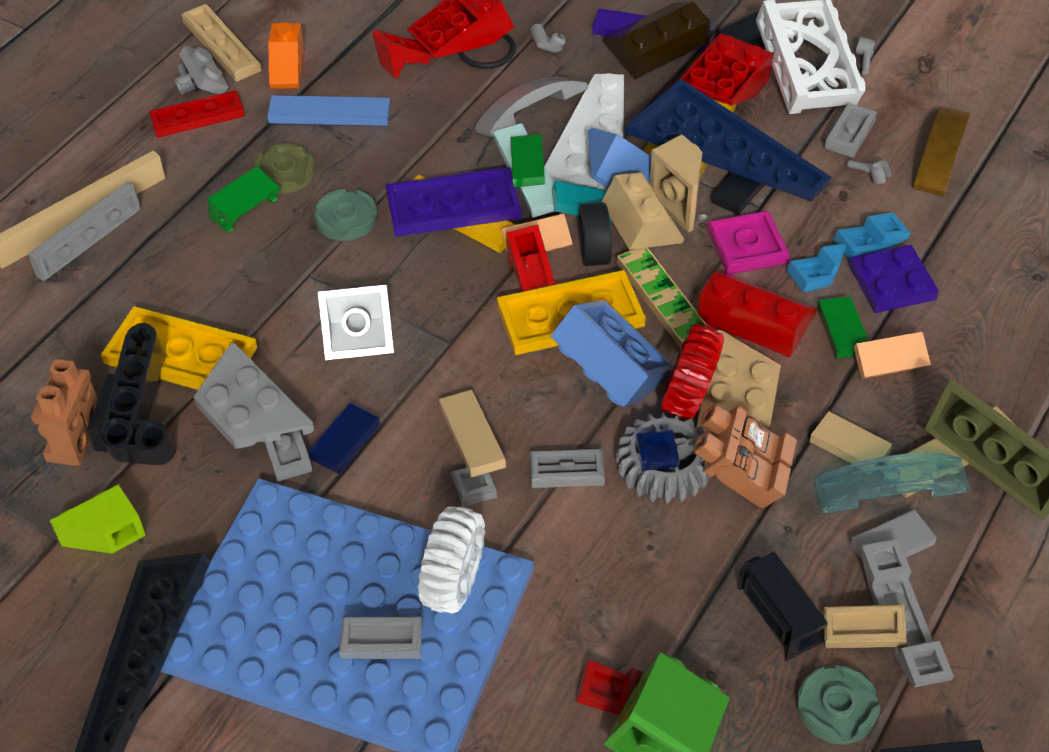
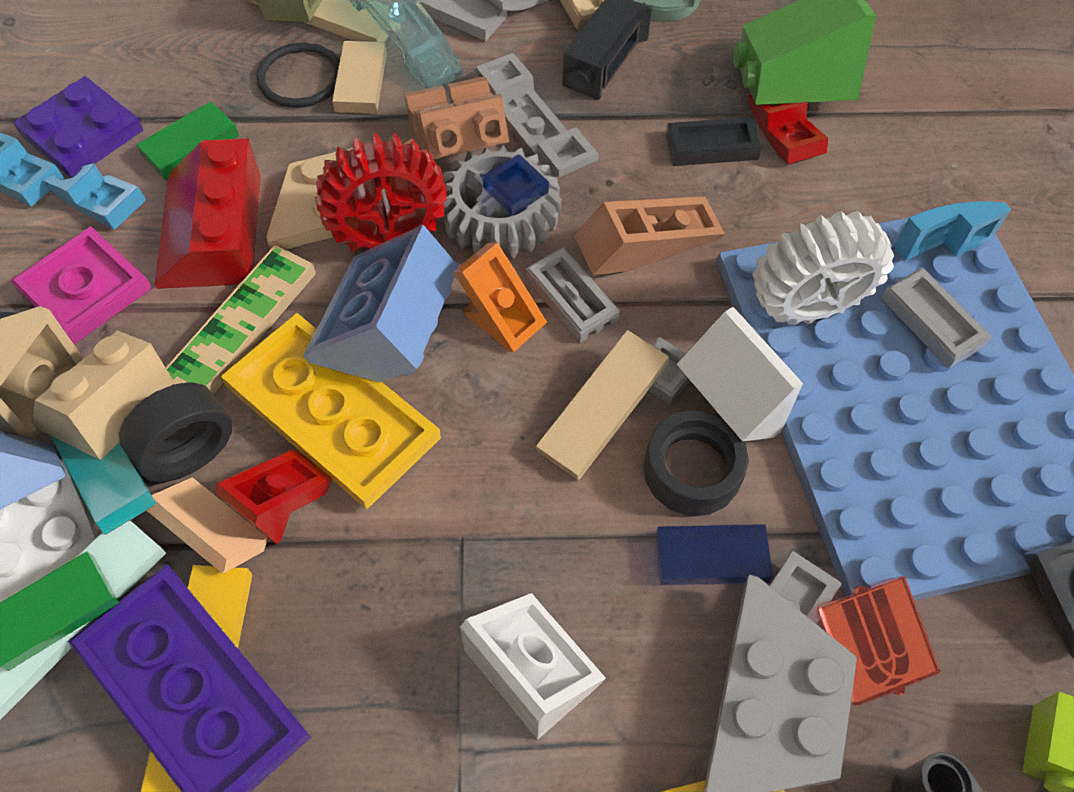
camera: 125 degrees left, 10 degrees up
(235, 475) = (884, 635): none -> clear red piece
(399, 477) = (704, 428): none -> black tyre
(420, 493) = (742, 378): none -> white slope
(430, 692) = (954, 225): none -> dark azure slope
(576, 527) = (645, 231): none -> nougat slope
(583, 416) = (498, 298): none -> orange slope
(640, 631) = (713, 141): none -> black tile
(731, 523) = (532, 121): none -> light grey slope
(890, 390) = (291, 48): none -> black piece
(892, 355) = (215, 80): light nougat tile -> none

